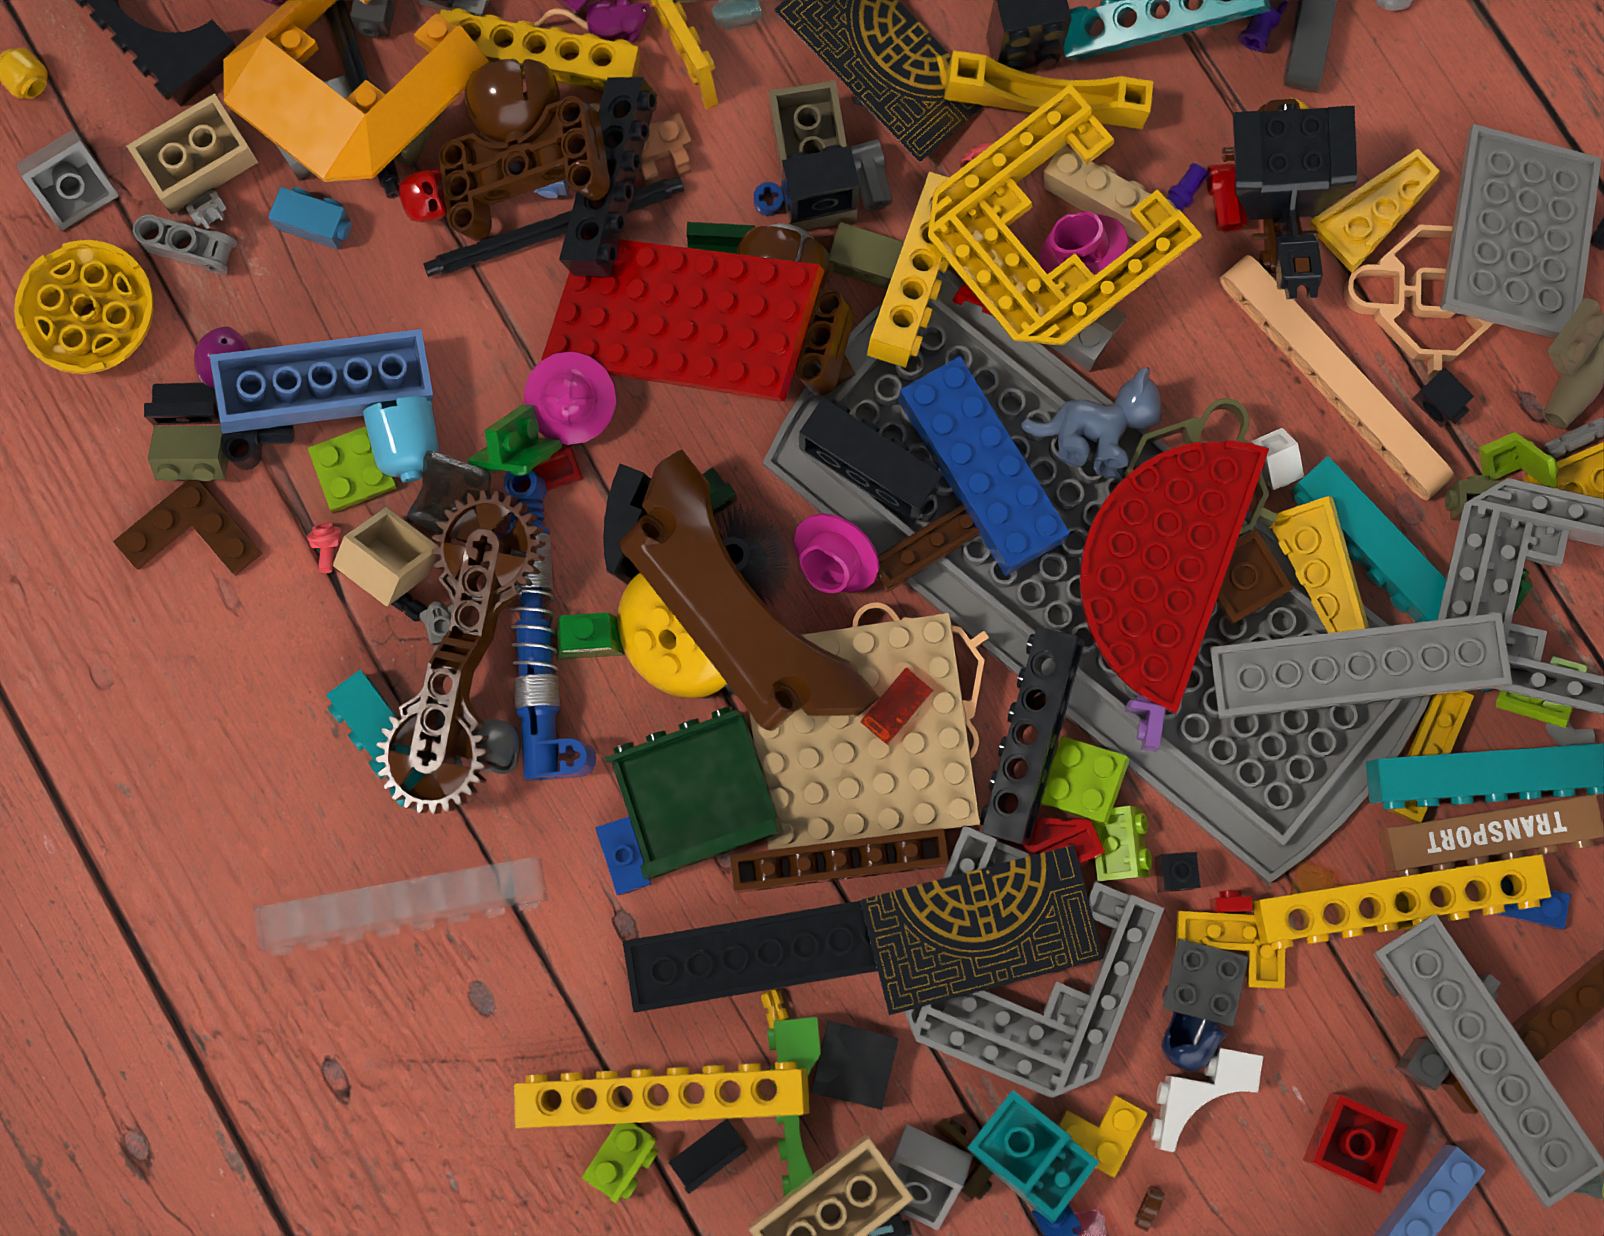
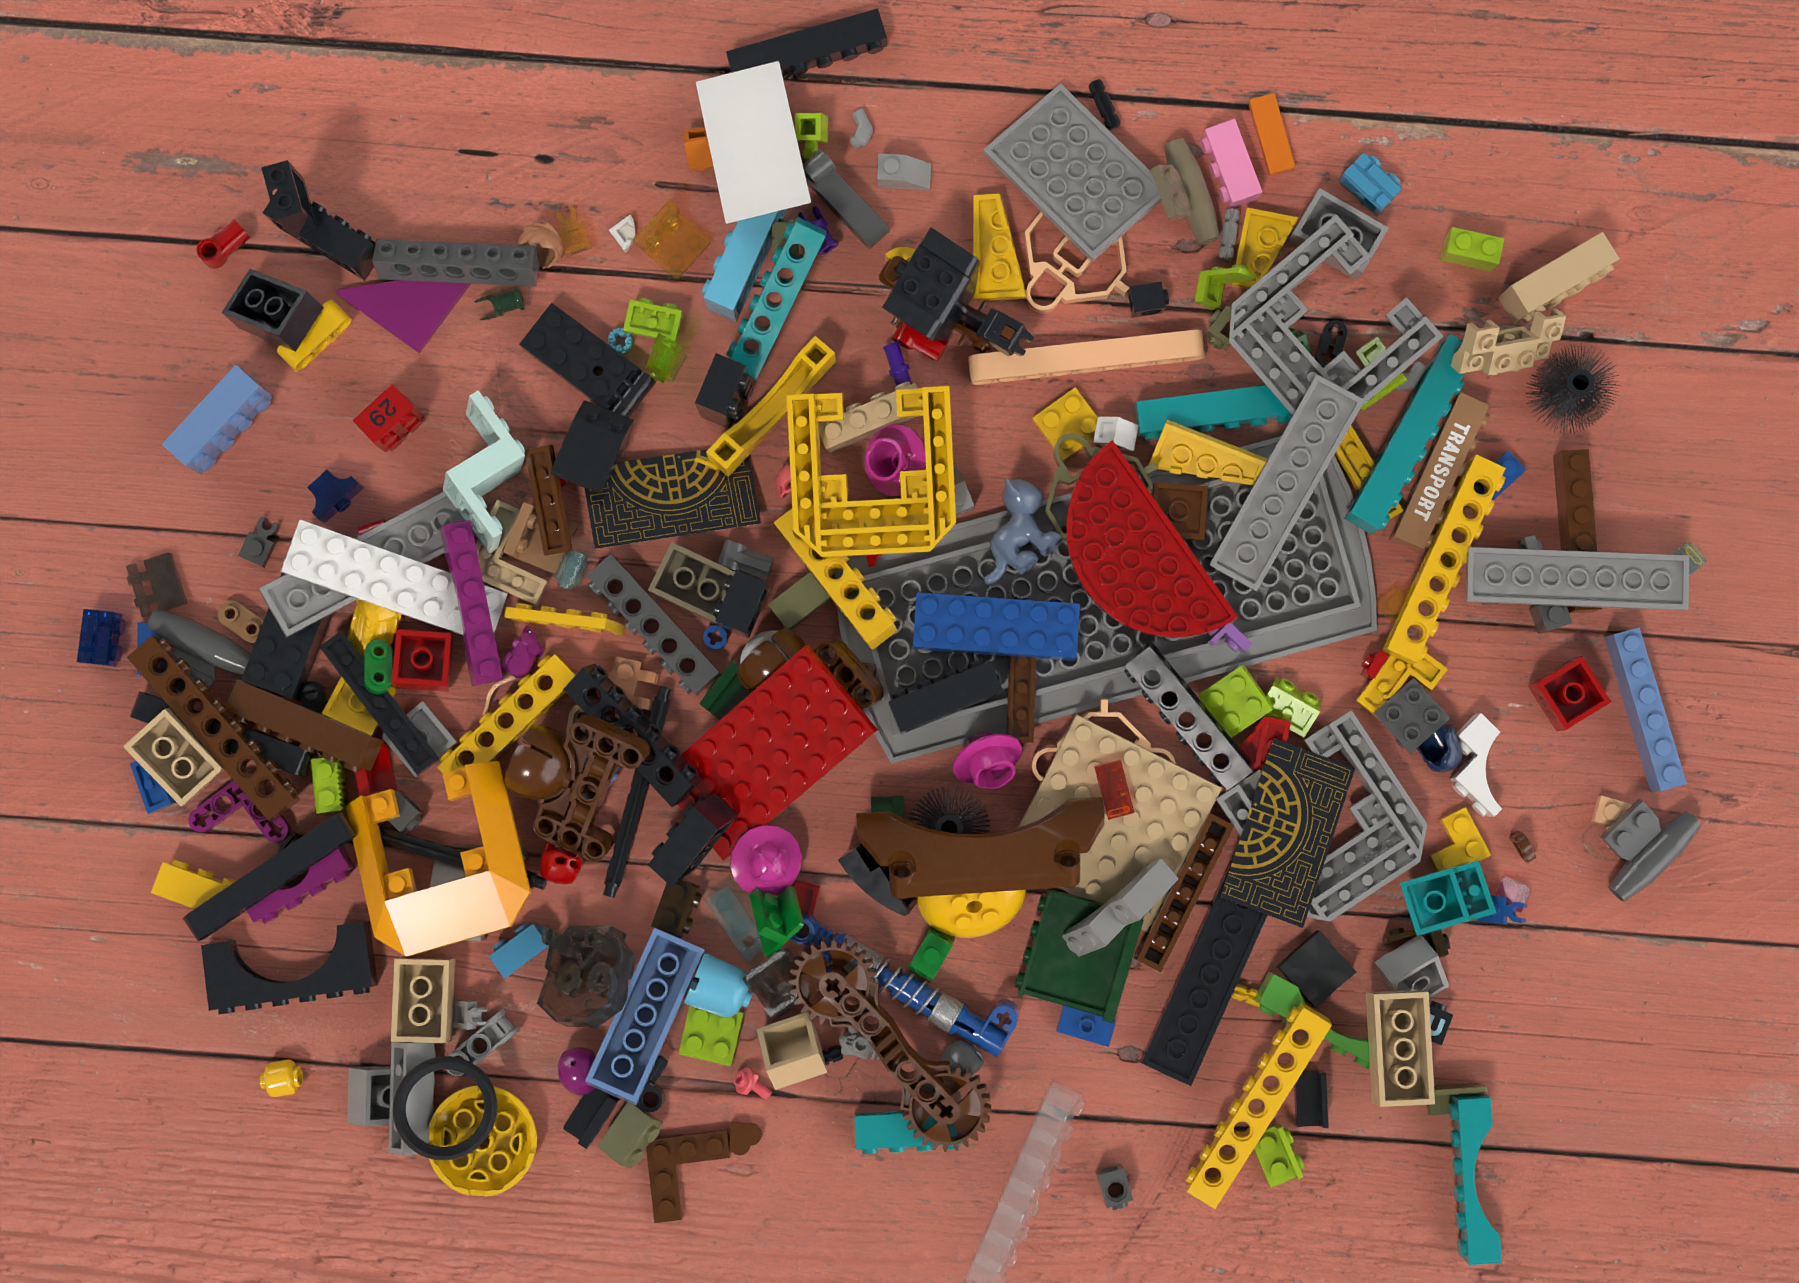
camera: 55 degrees left, 5 degrees up
(81, 186) = (450, 1152): none -> black tyre
(85, 207) = (420, 1099): none -> light grey brick
(264, 573) = (743, 1136): none -> reddish brown tile
(326, 291) = (586, 958): none -> clear smoke brick
(461, 345) = (675, 908): none -> dark brown bracket
(484, 1000) = (1108, 1176): none -> dark grey brick
(487, 407) = (735, 922): none -> clear light blue plate
(540, 304) = (692, 838): none -> black brick
(750, 46) = (610, 571): none -> dark grey brick
(774, 800) = (1122, 909): none -> light grey arch
(1177, 872) = (1332, 684): black brick -> none
(1262, 397) = (1064, 417): none -> yellow plate
(1386, 62) = (903, 172): none -> light grey slope
(1538, 616) = (1324, 341): none -> black beam

